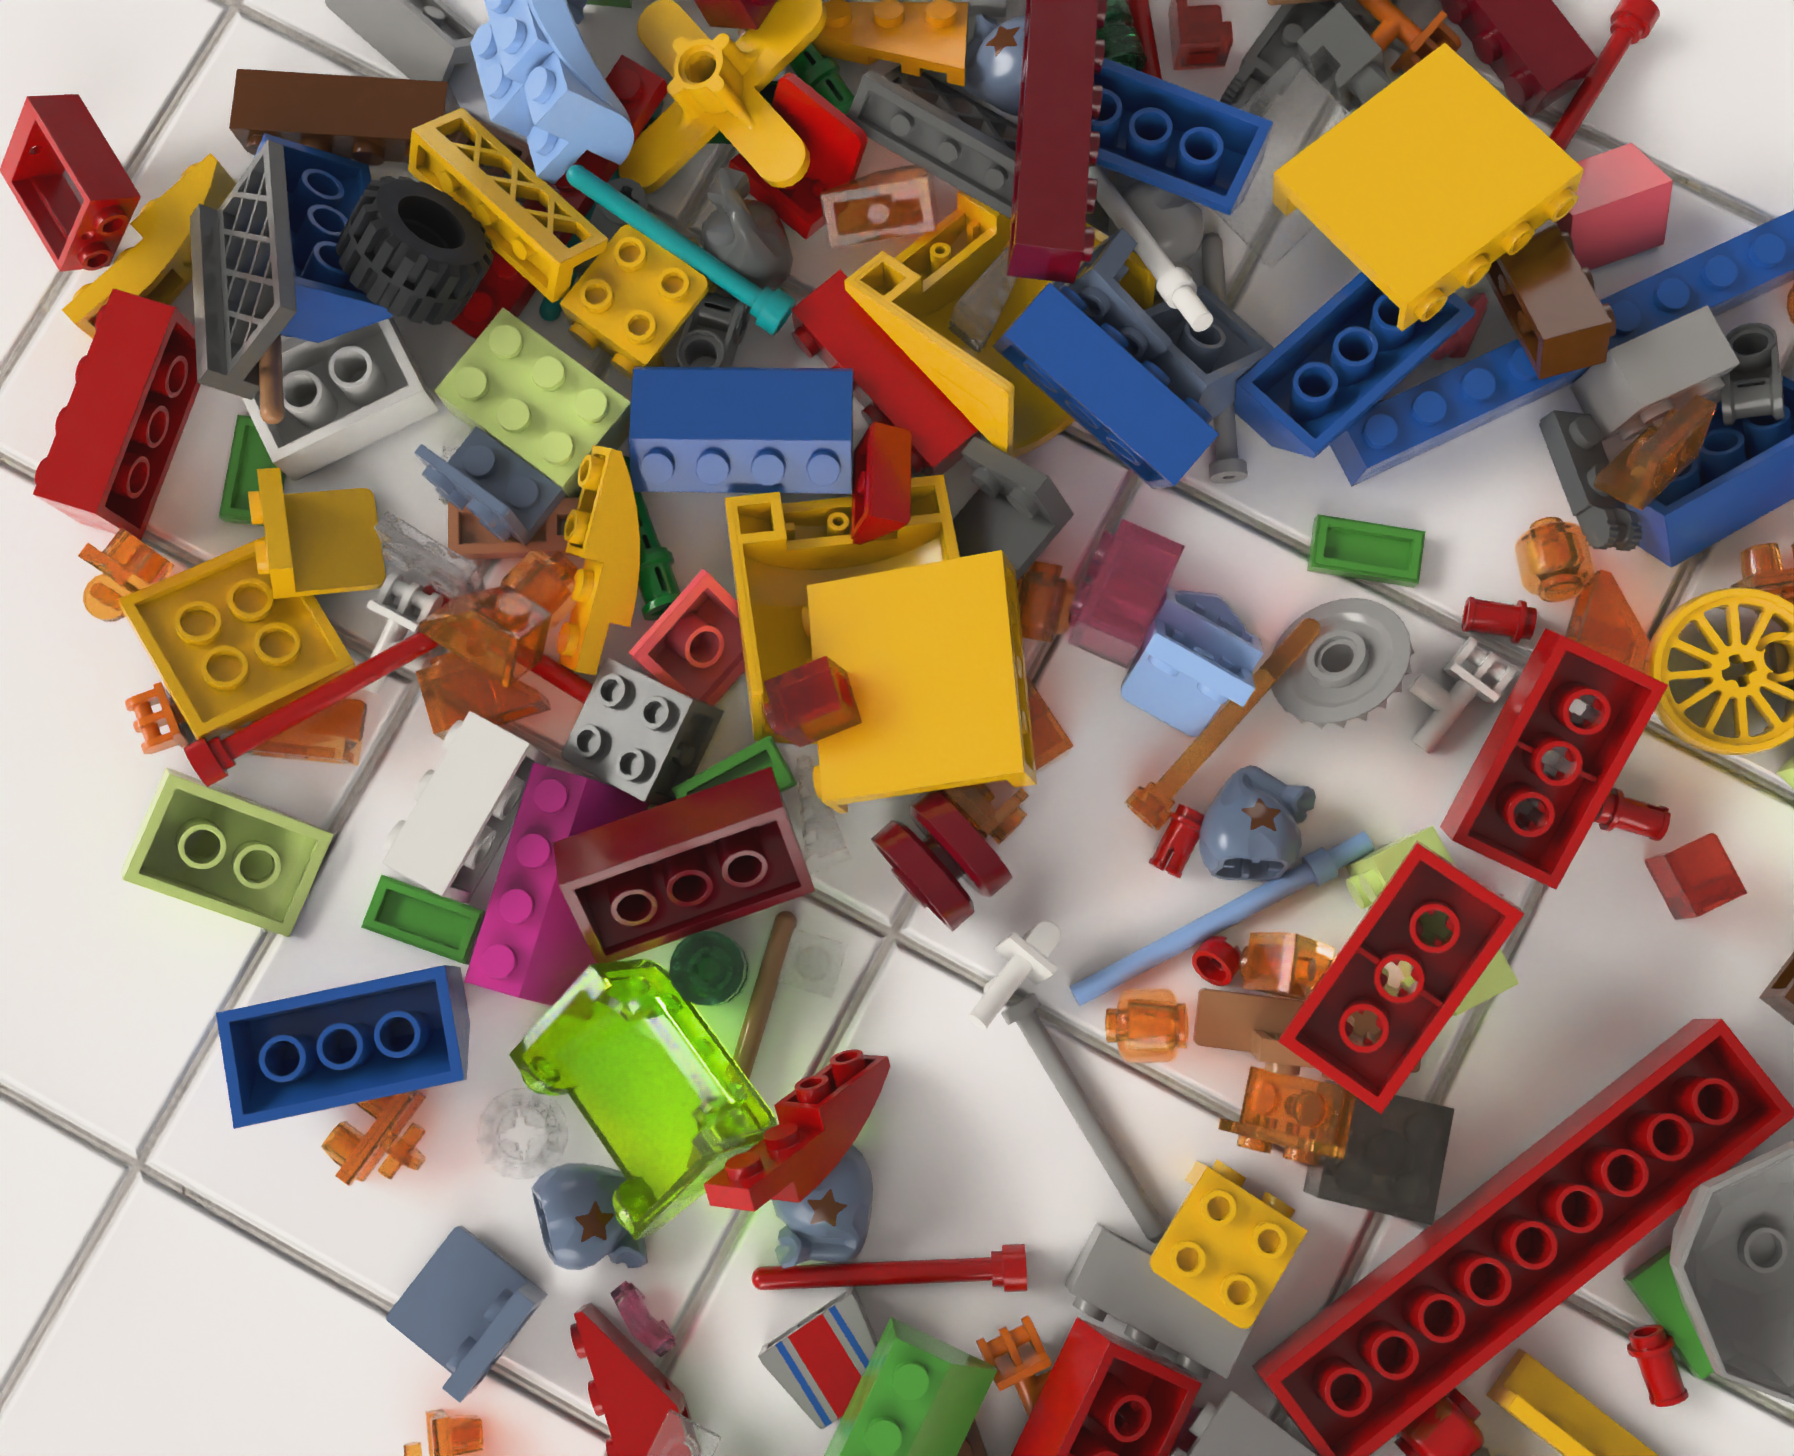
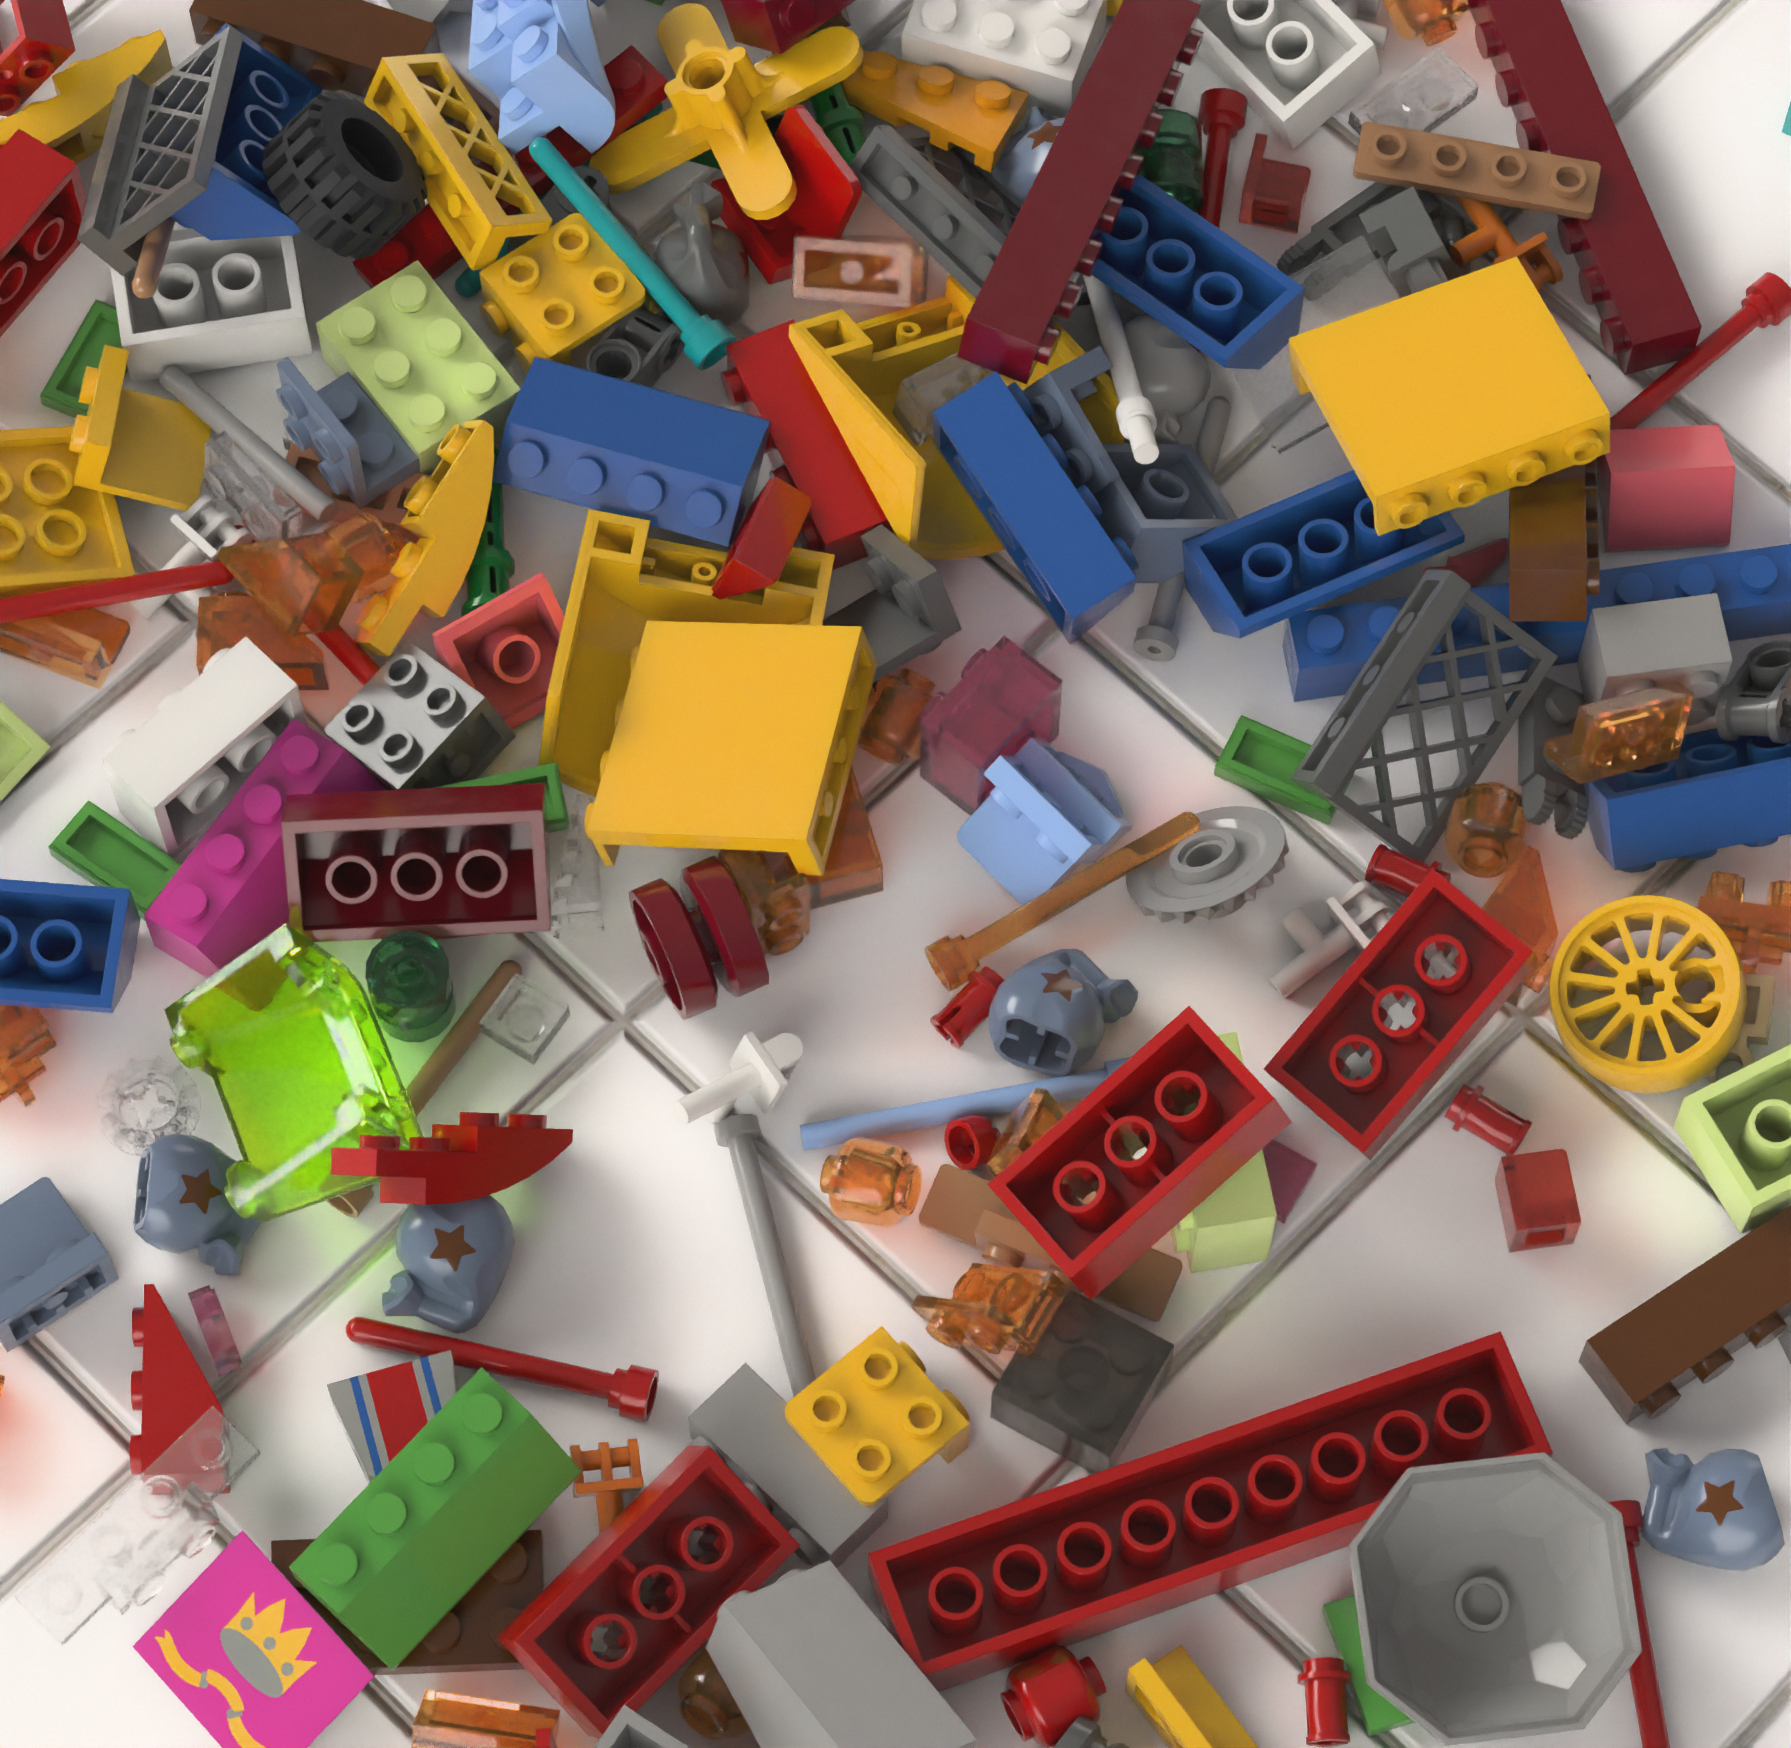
camera: 15 degrees right, 15 degrees down
(413, 514) = (272, 463): none -> light grey bar
(811, 702) = (608, 724): clear red brick -> none
(1452, 467) = (1390, 676): none -> dark grey fence

